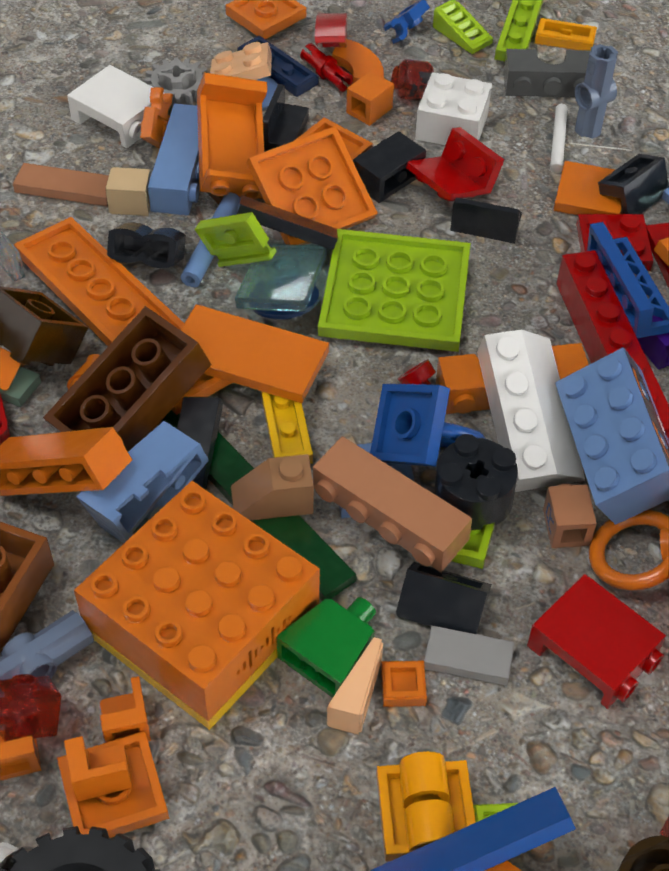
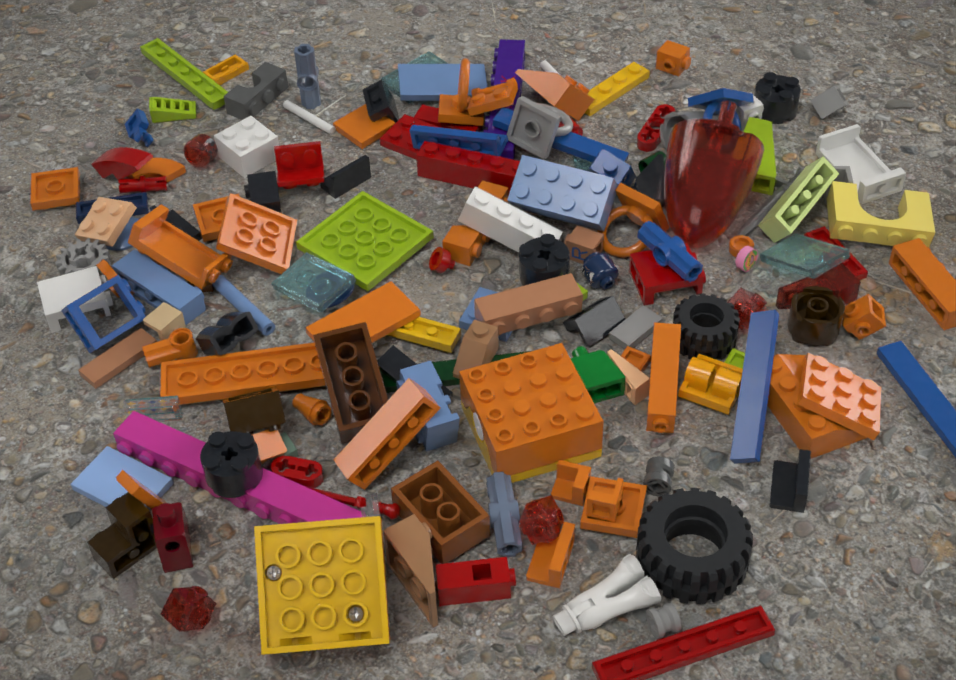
camera: 55 degrees left, 5 degrees down
(69, 128) = (84, 328): none -> blue window
(95, 213) = (178, 346): none -> orange piece
(187, 823) = (659, 475): none -> dark grey wheel
(235, 239) = (270, 285): lime plate -> none
(289, 223) = (278, 256): black tile -> none
(370, 98) = (195, 177): orange brick -> none
(377, 733) = (663, 378): none -> orange slope
(413, 425) = (492, 265): blue tile -> none
(527, 711) = (707, 326): none -> black tyre
(536, 556) = (599, 270): none -> dark blue head
(602, 785) = (747, 303): none -> clear red brick
(615, 619) = (669, 251): none -> blue piece

